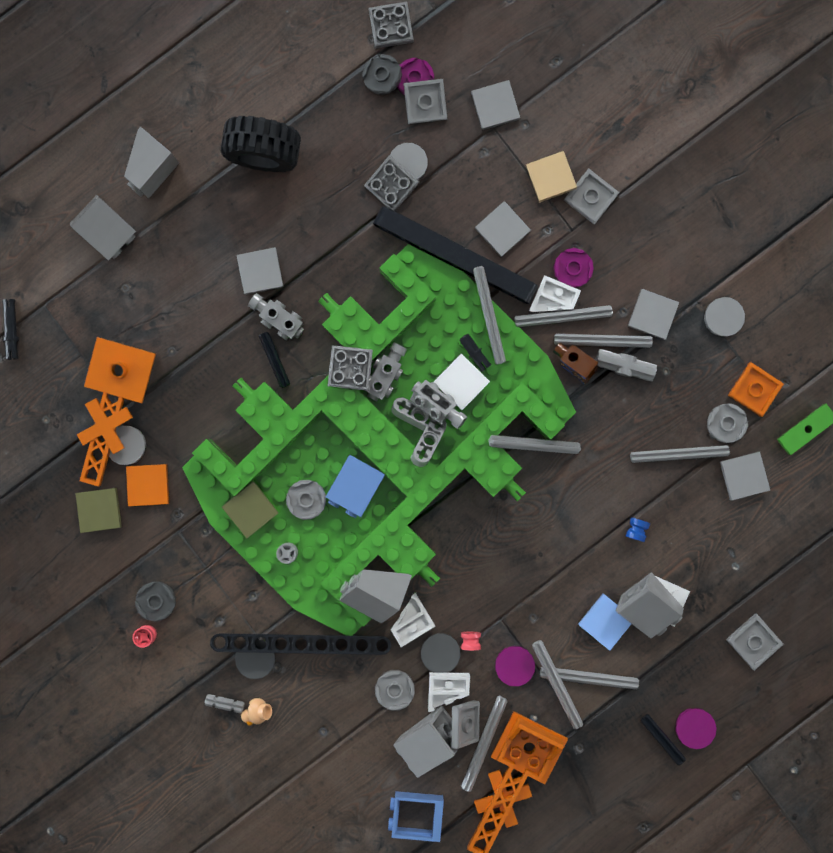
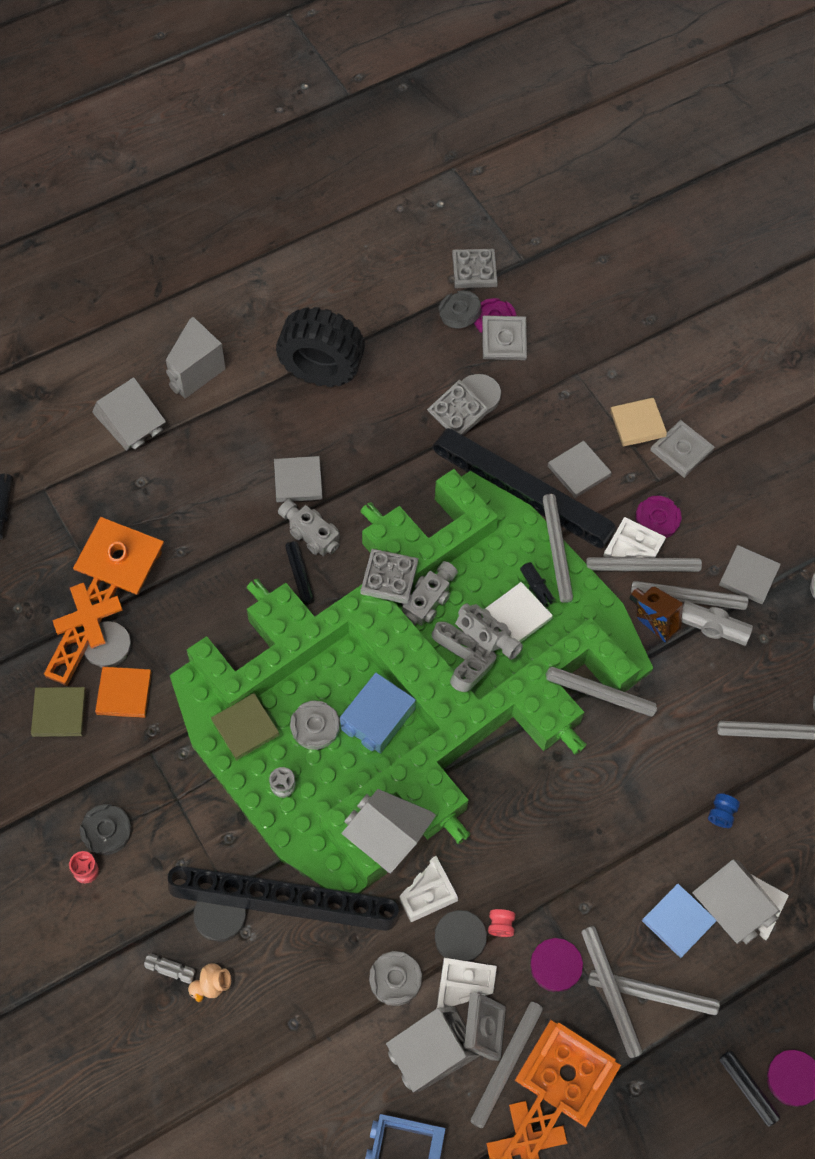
camera: 10 degrees right, 25 degrees down
(495, 105) = (580, 351): light grey tile -> none

